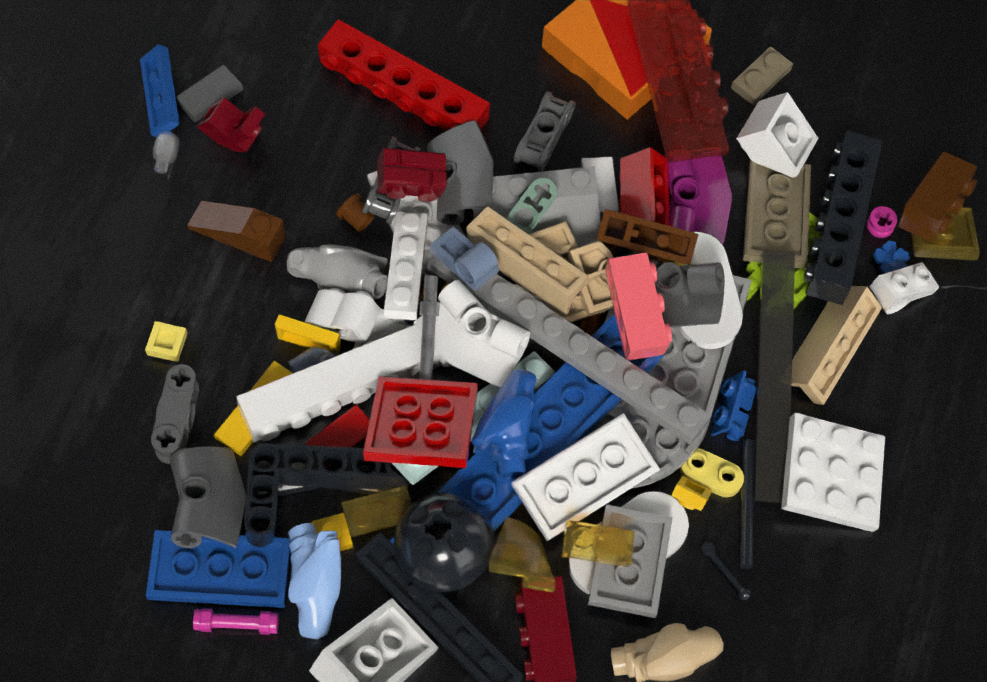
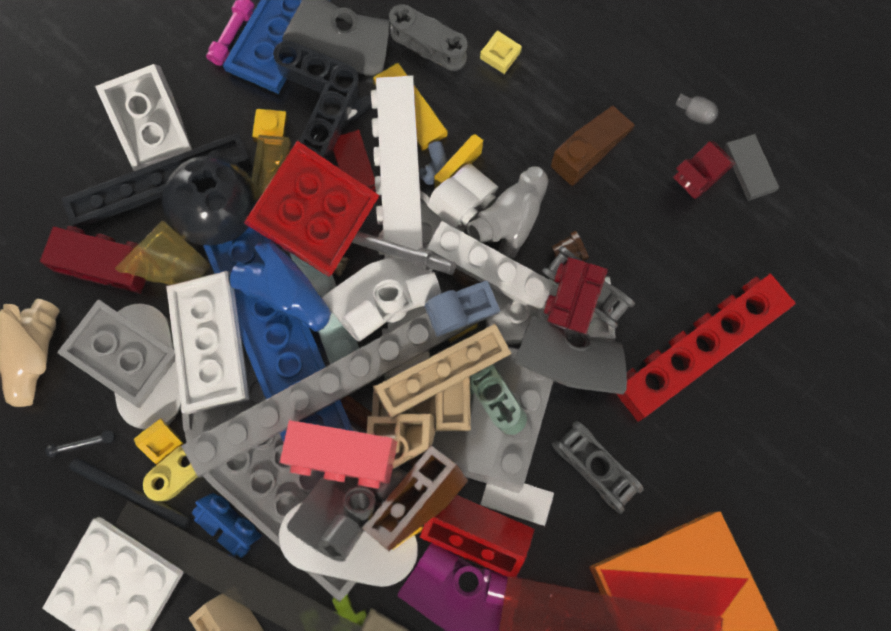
camera: 115 degrees right, 10 degrees up
(159, 90) = (765, 122): blue plate -> none
(314, 578) = (230, 90): light blue animal -> none
(598, 543) = (138, 324): clear yellow plate -> none

